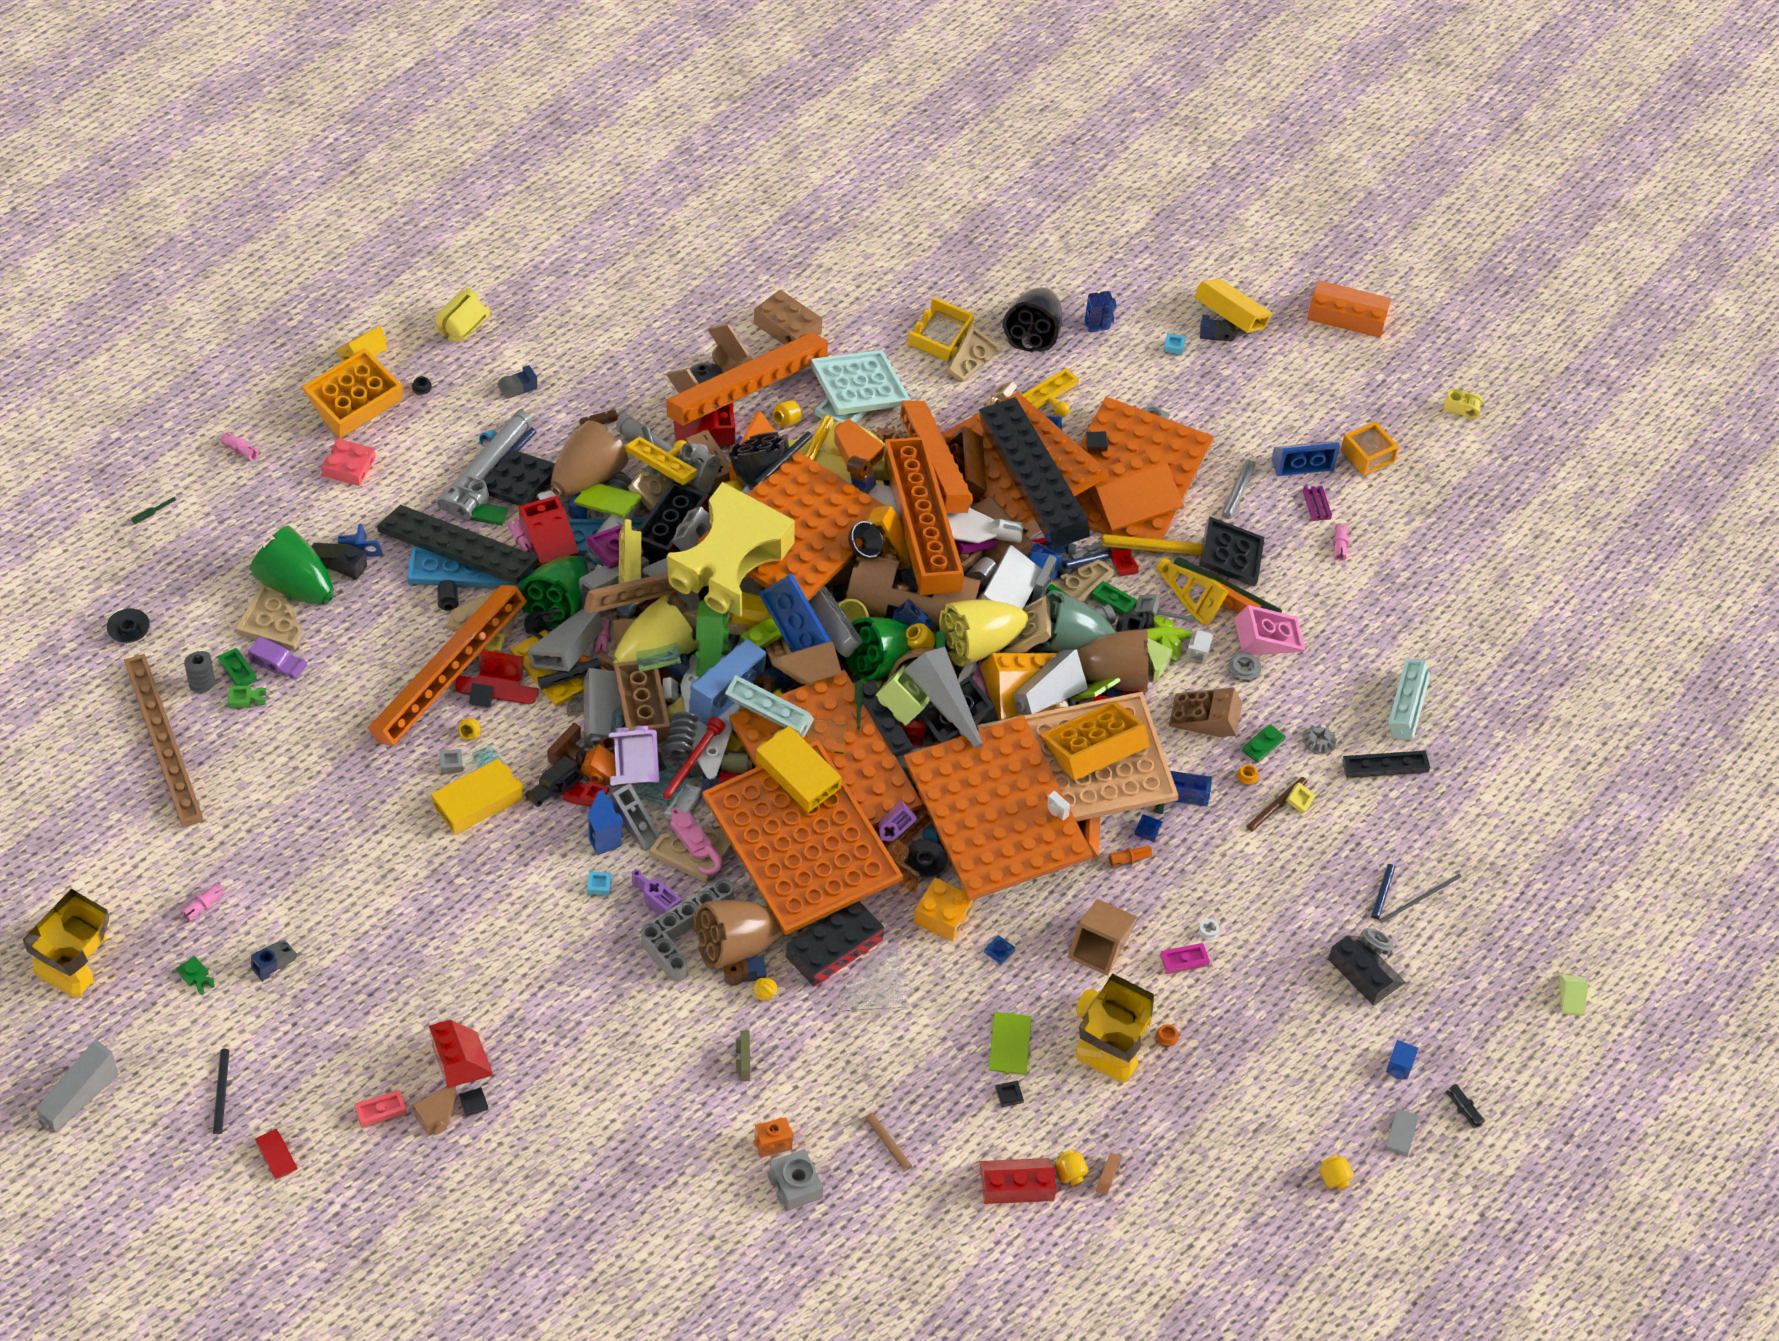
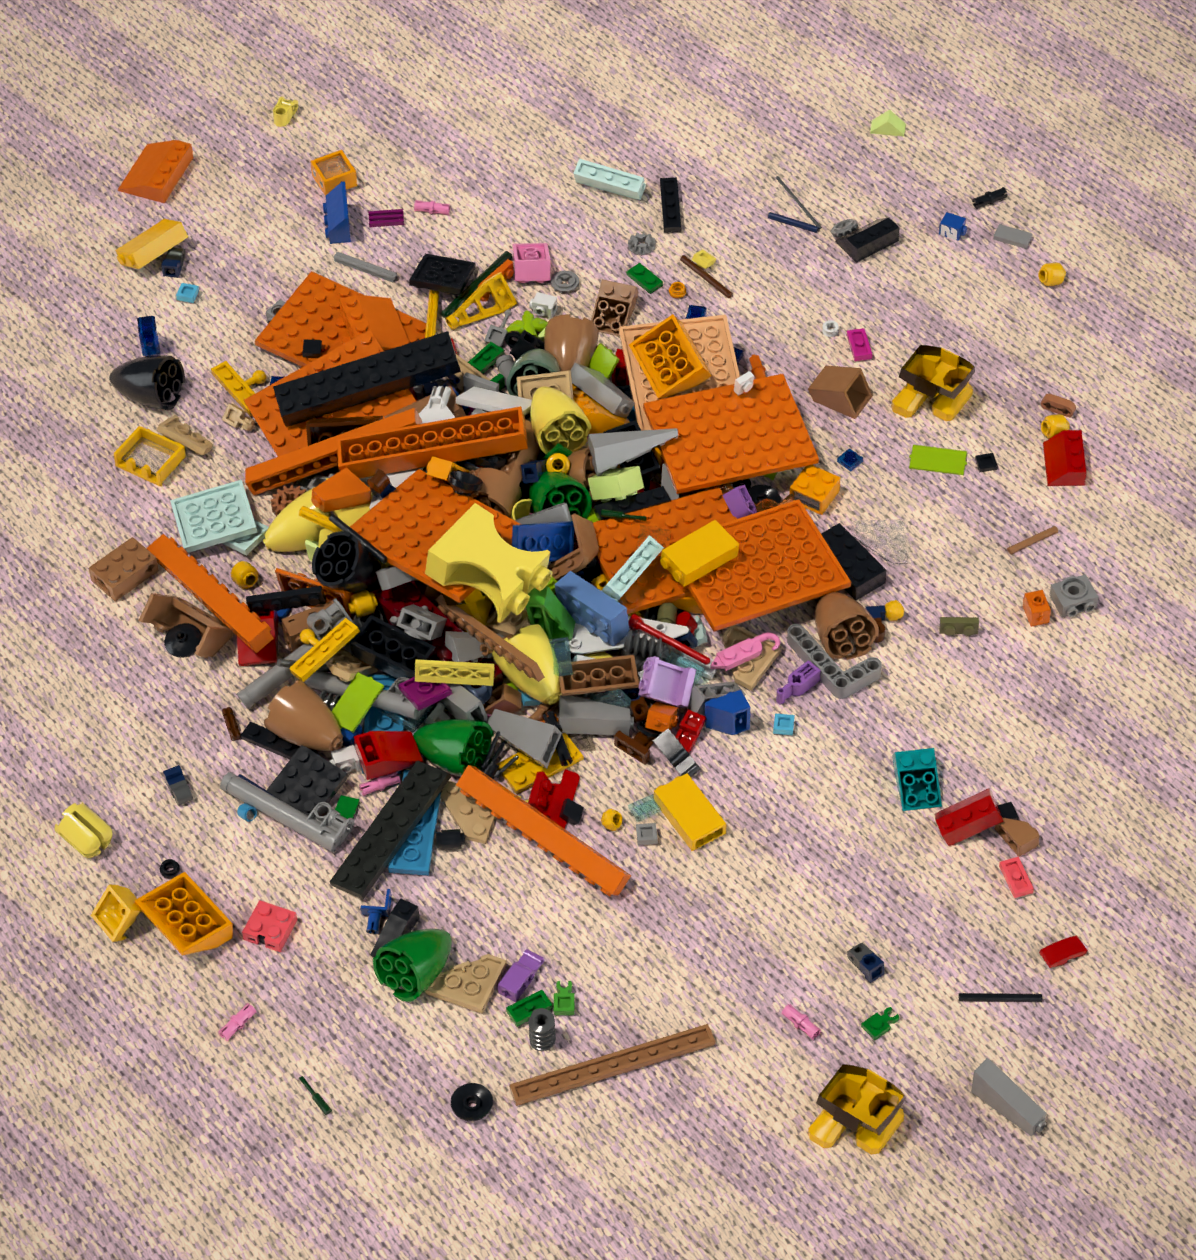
camera: 80 degrees left, 0 degrees up
(521, 1010) = (917, 779): none -> teal slope
(727, 423) = (286, 599): none -> black plate

